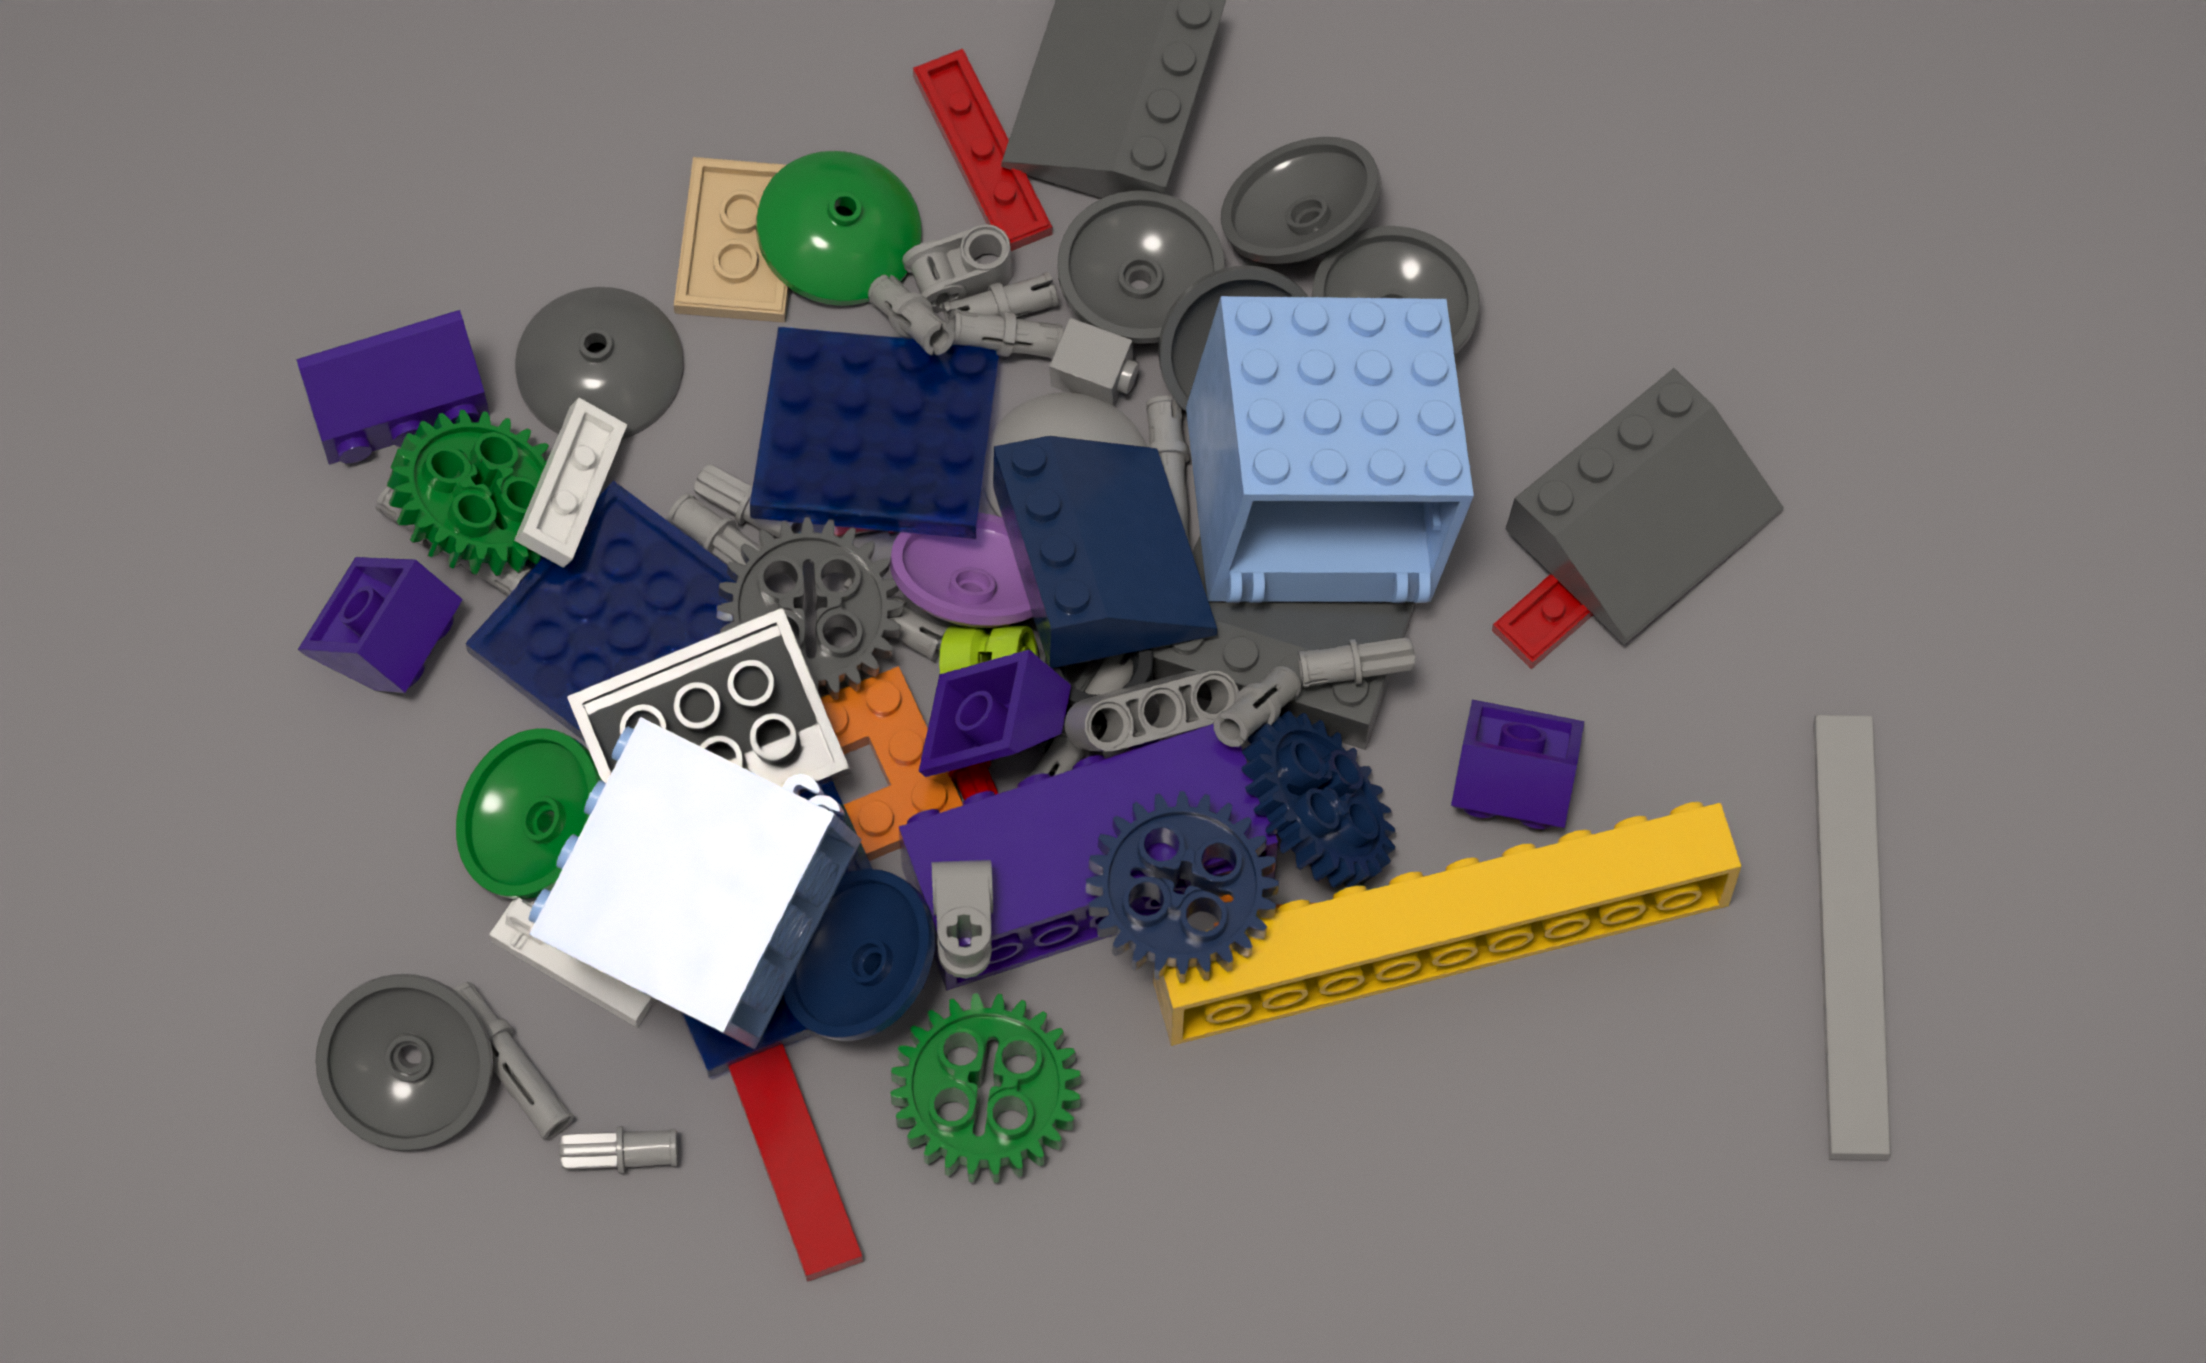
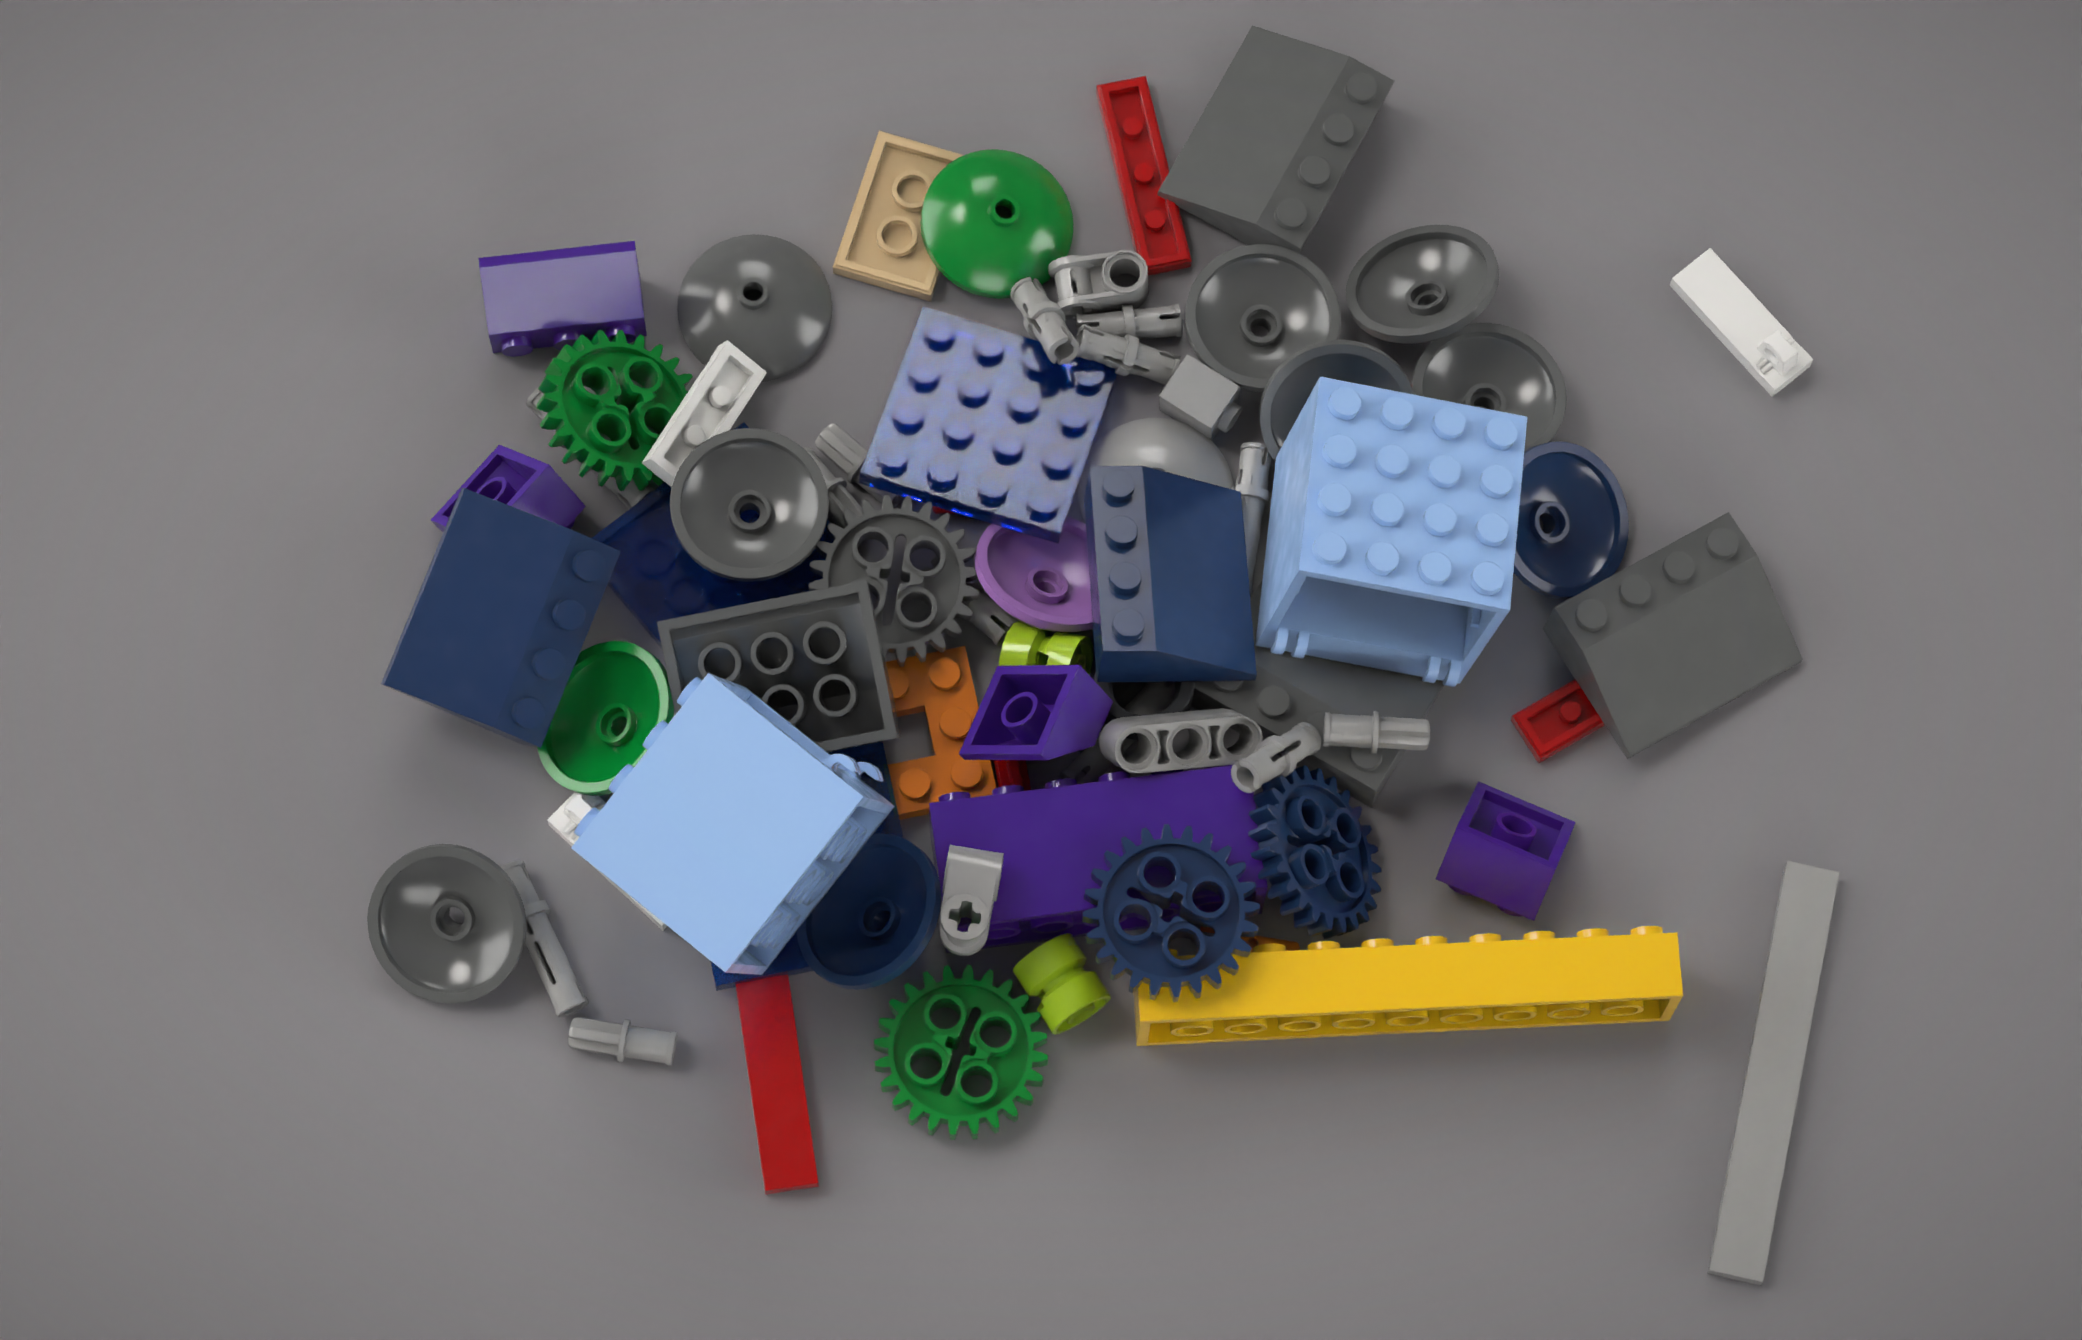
camera: 10 degrees right, 5 degrees up
(397, 729) = (501, 618): none -> dark blue slope
(631, 529) = (744, 473): none -> dark grey dish
(1072, 988) = (1058, 978): none -> lime wheel
(1519, 406) = (1581, 520): none -> dark blue dish
(1640, 179) = (1741, 322): none -> white hinge

